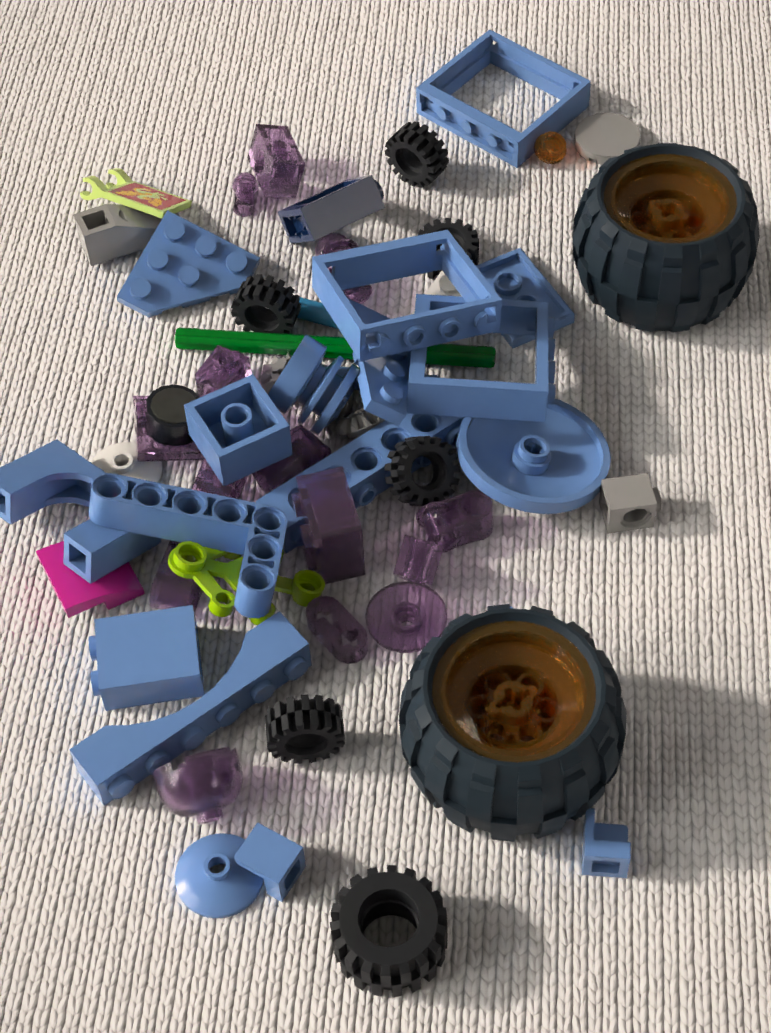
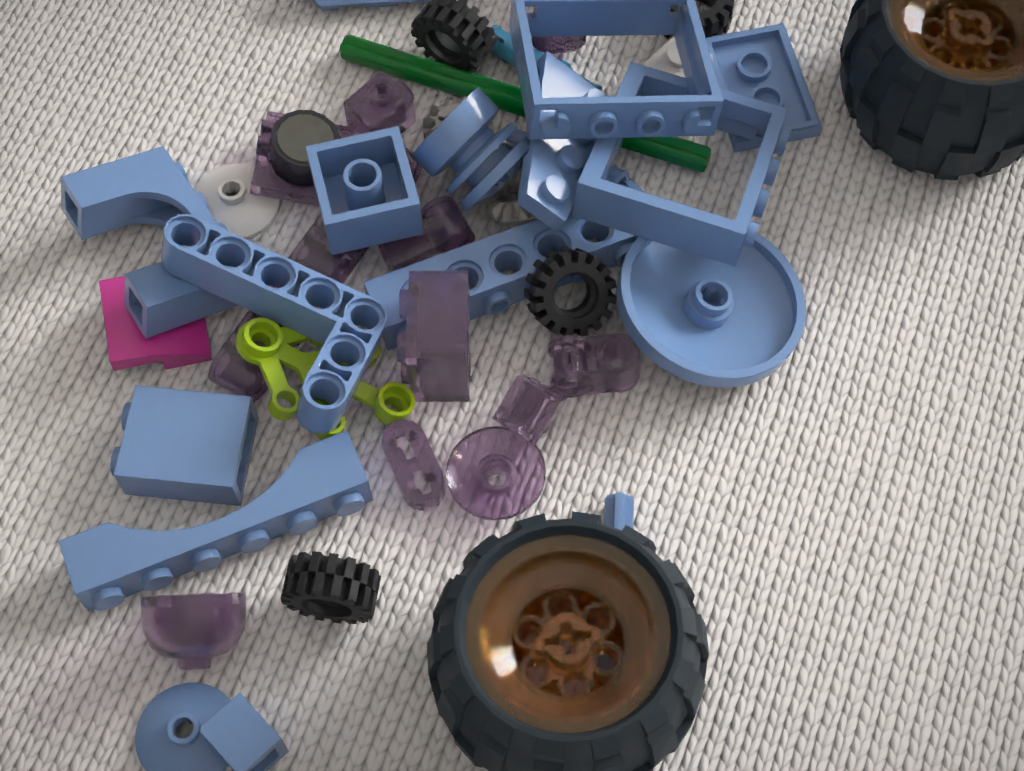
camera: 15 degrees right, 10 degrees up
(628, 503) = (808, 393): light grey brick -> none

